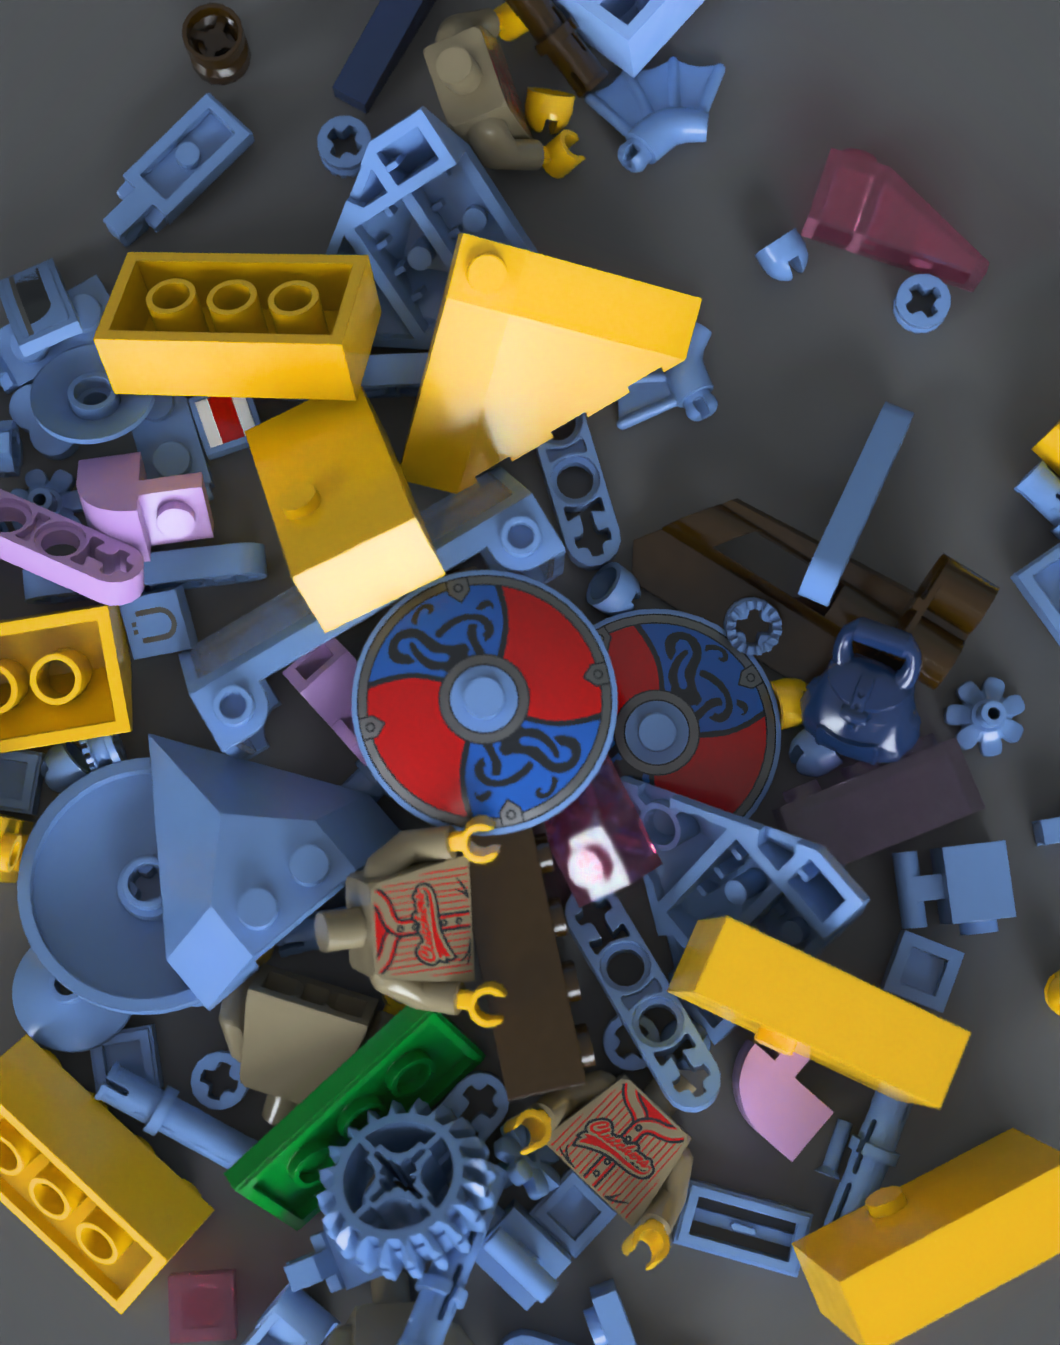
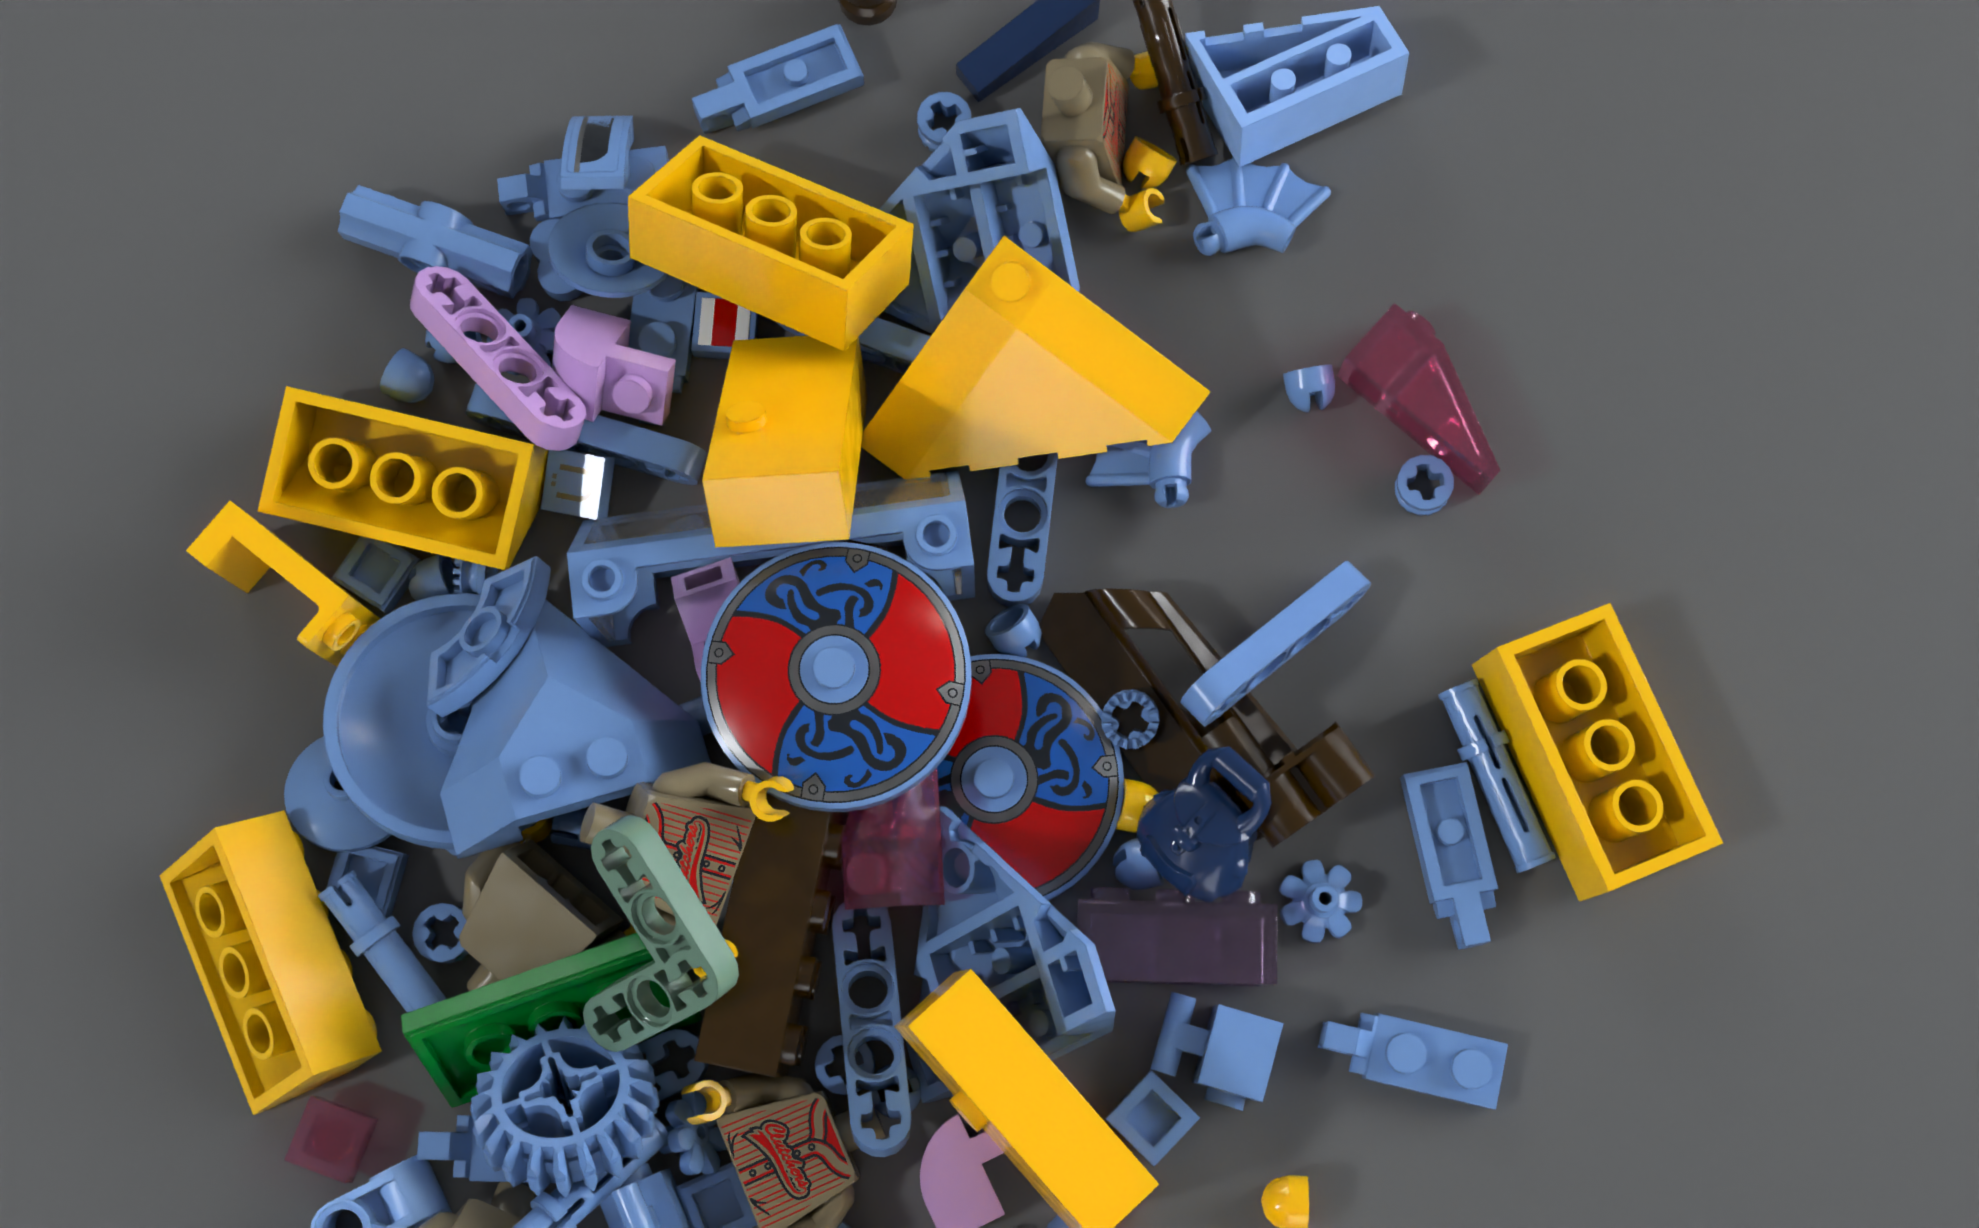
camera: 25 degrees right, 5 degrees down
(145, 799) = (489, 637): none -> medium blue tile
(451, 1013) = (675, 948): none -> sand green beam

